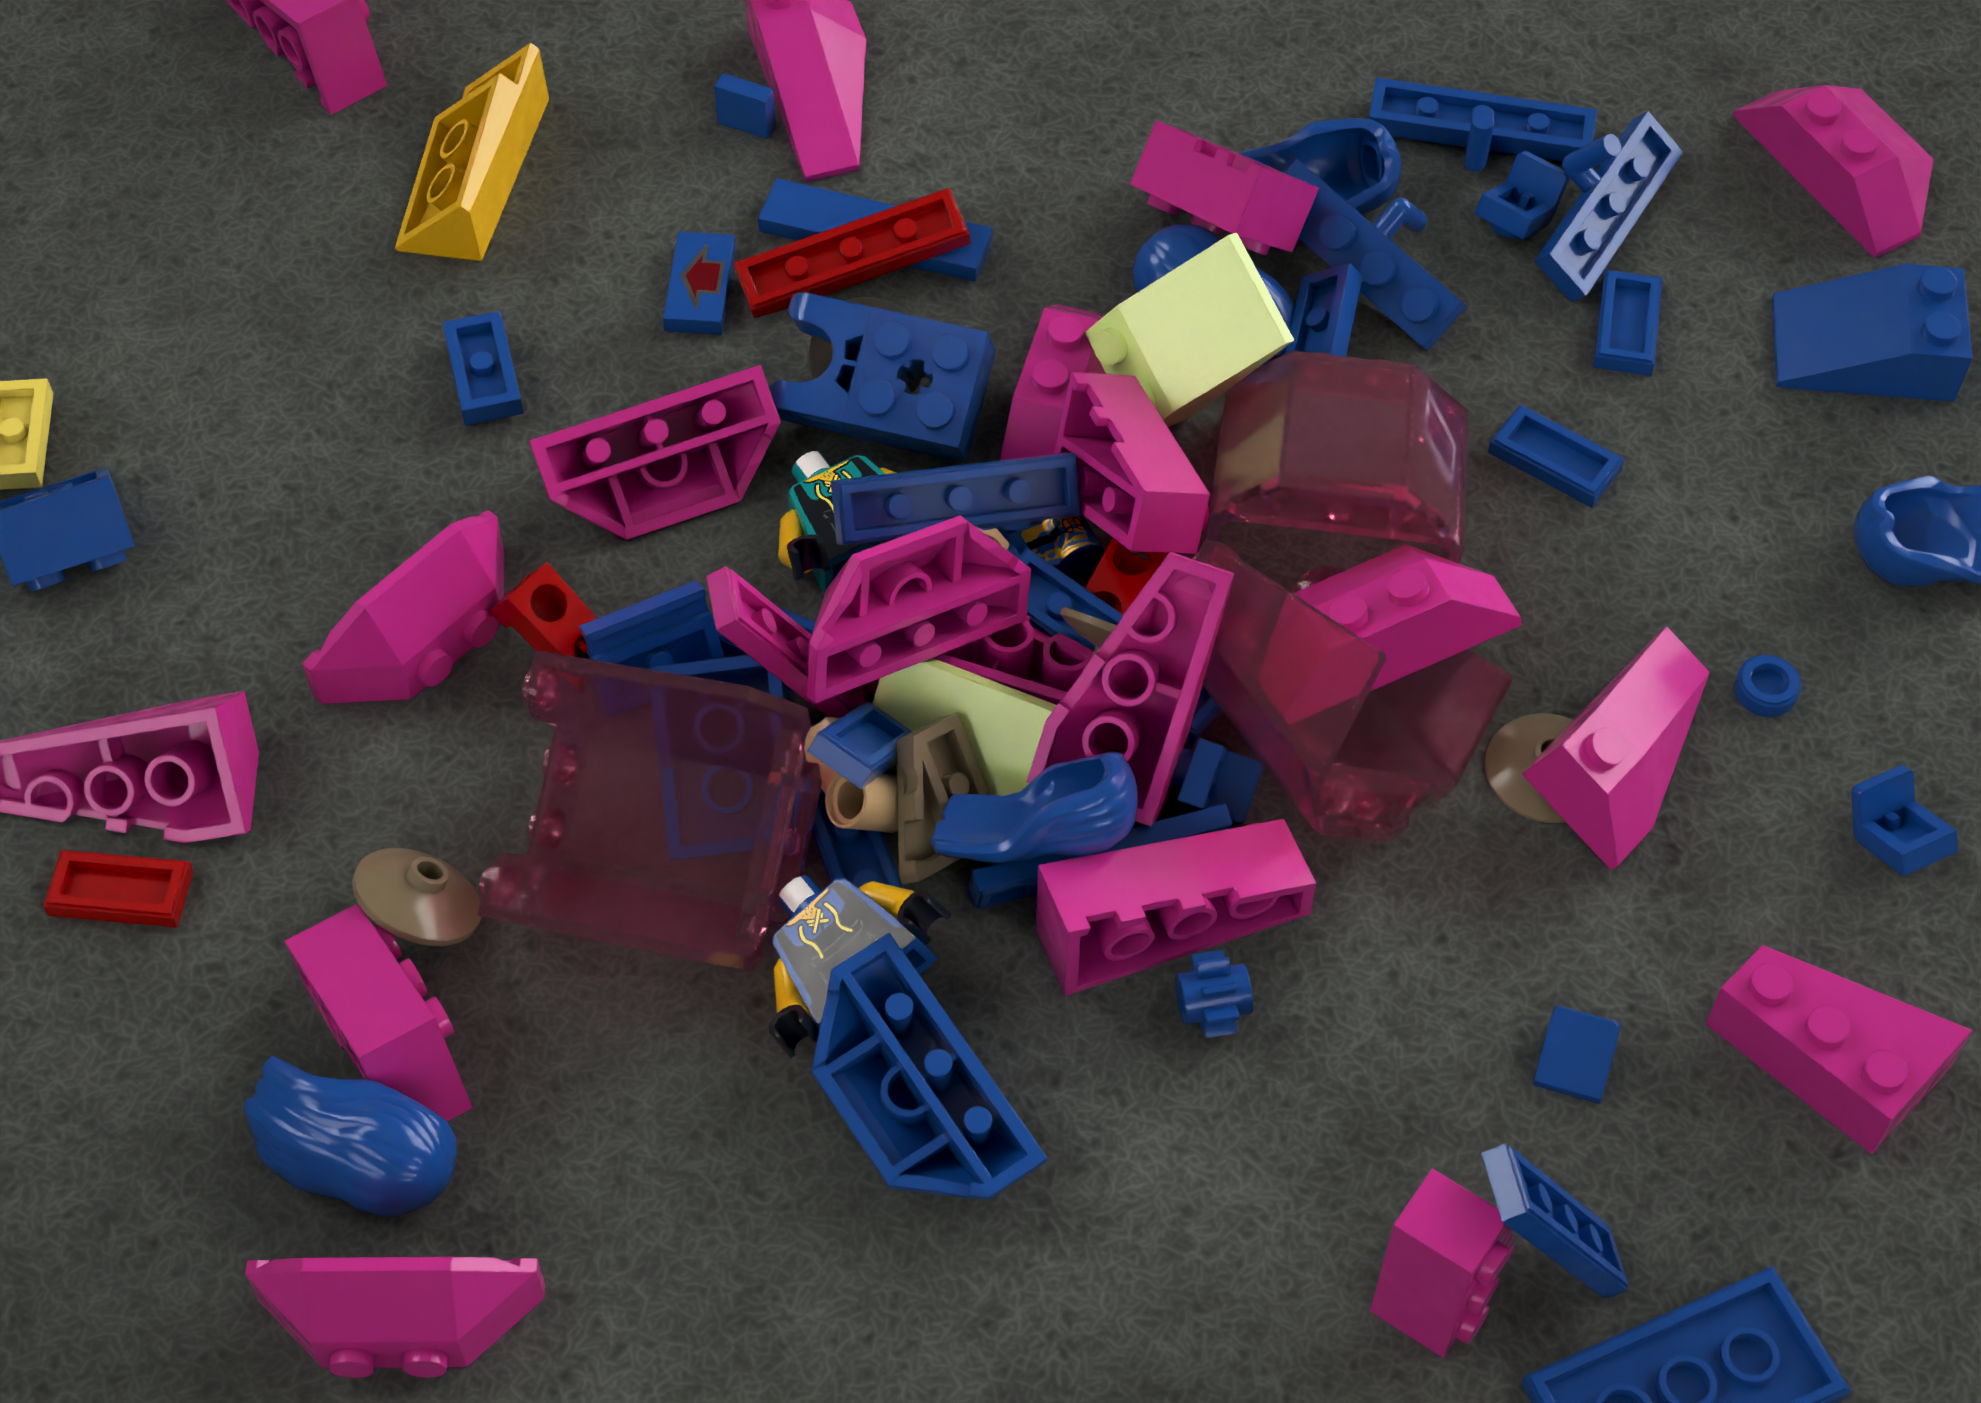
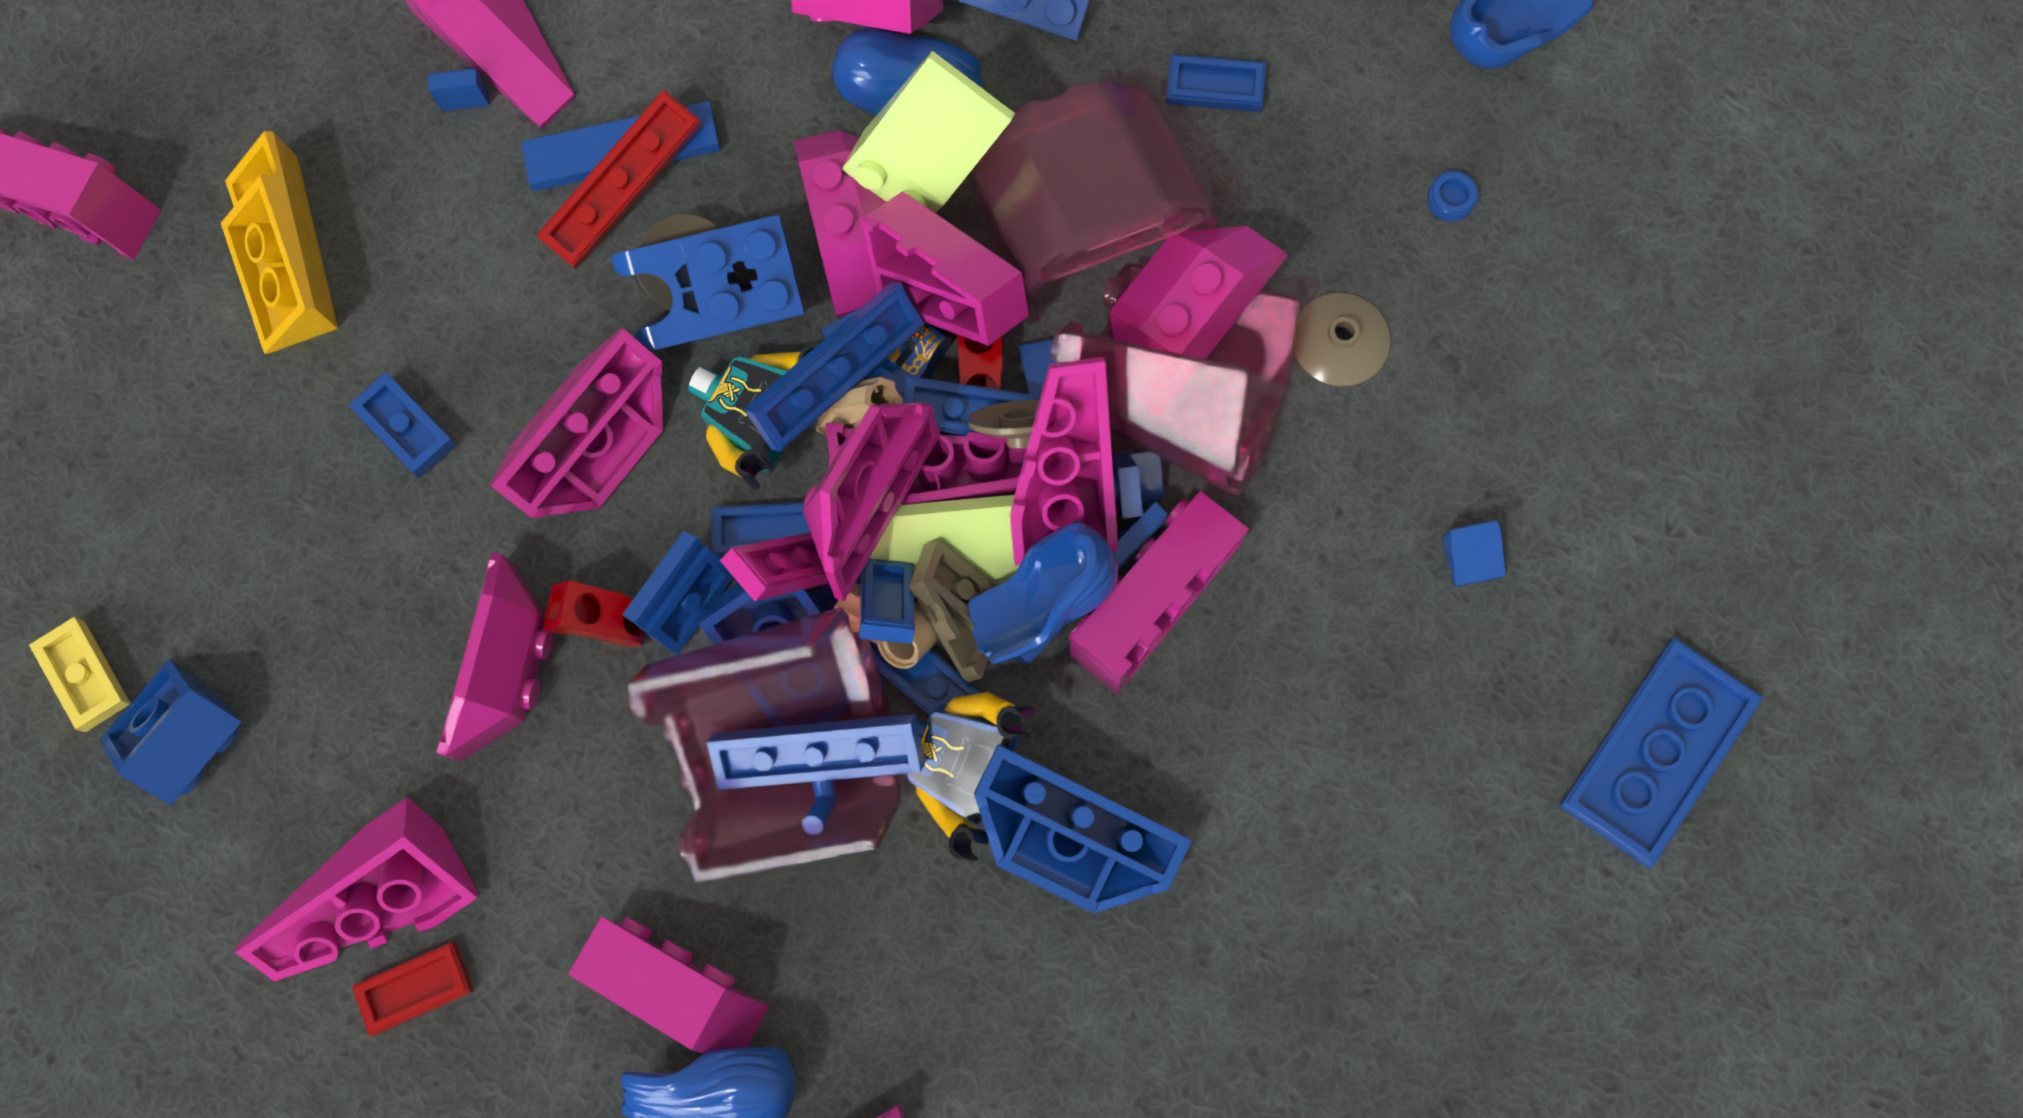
camera: 25 degrees left, 20 degrees up
(416, 896) = (630, 896): dark tan dish -> none
(690, 861) = (818, 756): none -> plate
(699, 283) = (518, 262): blue tile -> none
(1214, 993) = (1222, 645): blue gear -> none
(1325, 311) = (997, 56): blue plate -> none
(1442, 1264) = (1489, 763): dark pink wedge -> none
(1554, 1221) = (1551, 710): blue tile -> none
(1622, 749) = (1385, 308): dark pink wedge -> none
(1836, 1042) = (1640, 456): dark pink wedge -> none
(1896, 826) = (1596, 264): blue bracket -> none

